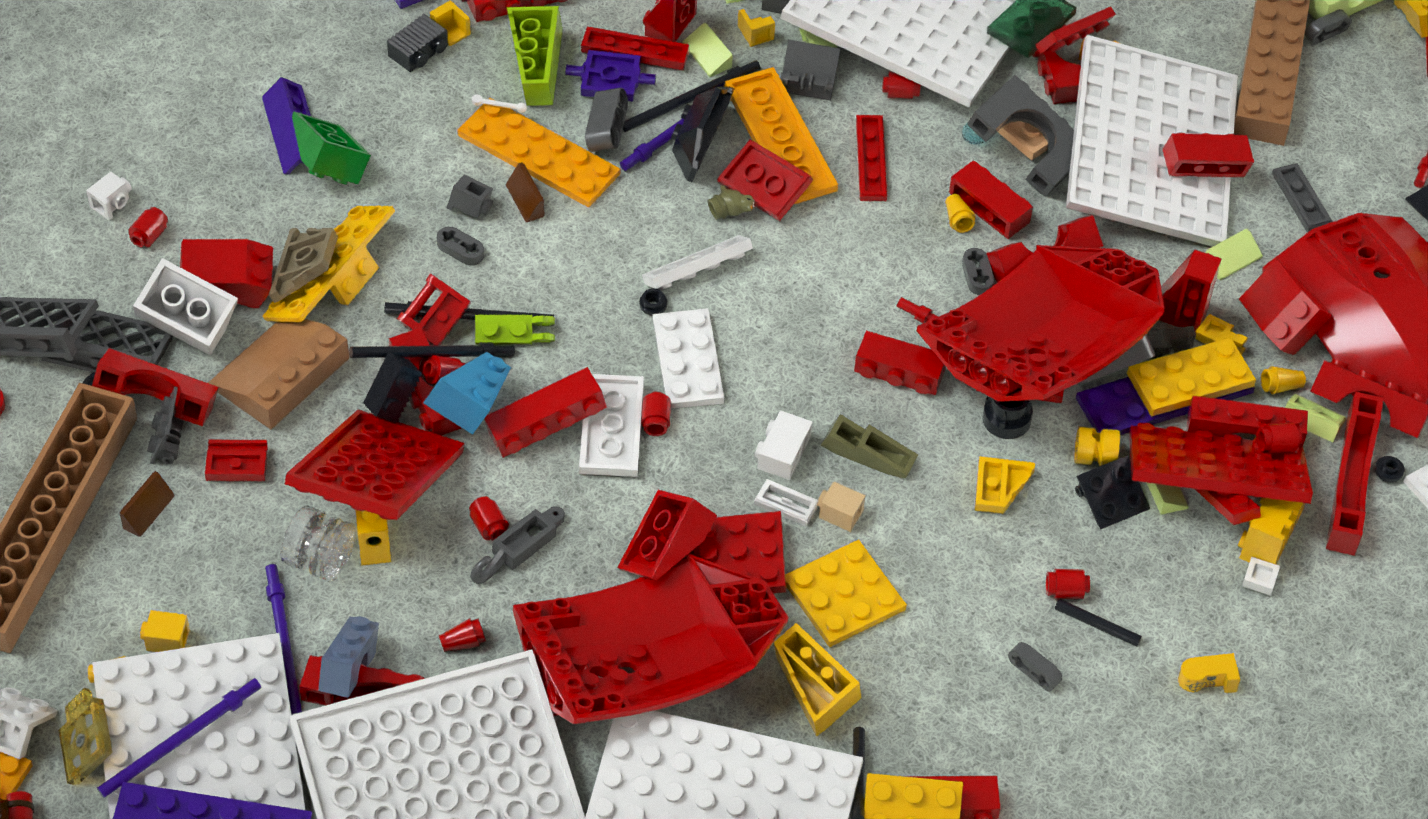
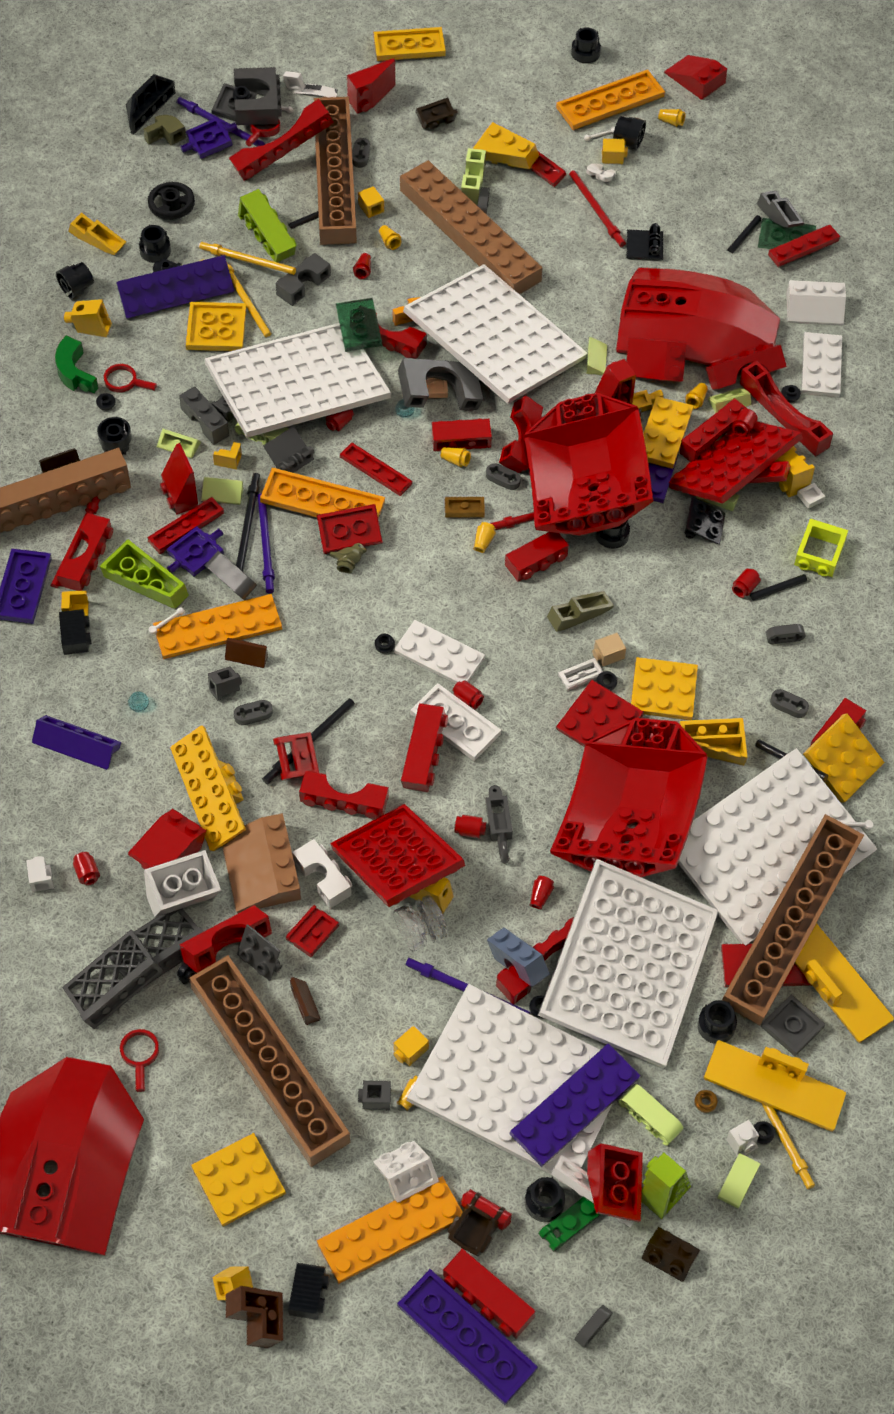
camera: 50 degrees left, 5 degrees up
(81, 638) = (379, 1088): none -> dark grey brick
(84, 736) = (454, 1134): clear yellow piece -> none
(230, 702) = (501, 1039): dark purple bar -> none
(302, 260) = (197, 798): dark tan wing -> none
(323, 405) = (314, 858): none -> white arch
(329, 149) = (120, 730): green slope -> none
(382, 140) = (138, 696): none -> clear light blue plate
(392, 387) = (341, 812): black brick -> none
(428, 351) = (345, 751): black bar -> none
(440, 366) = (346, 779): red brick -> none
(469, 391) = (384, 772): dark azure wedge -> none
(511, 329) = (341, 727): lime hinge -> none
(666, 534) = (563, 746): red slope -> none
(699, 128) = (285, 535): black wedge -> none
(705, 259) = (377, 602): white plate -> none
(783, 445) = (544, 648): white brick -> none
(799, 523) = (607, 675): none -> black plate
(878, 302) = (484, 535): none -> yellow cone
(900, 261) = (464, 507): none -> pearl gold plate
(937, 731) = (789, 703): none -> dark grey beam
(1000, 483) = (654, 567): yellow wing -> none
(1073, 32) = (385, 310): red plate -> none
(1096, 446) = (671, 506): yellow wheel -> none
(1208, 155) = (531, 316): red brick -> none
(1210, 672) = (855, 554): yellow leg -> none
(1219, 616) = (826, 533): none -> neon yellow window
(1301, 196) = (584, 299): dark grey tile -> none

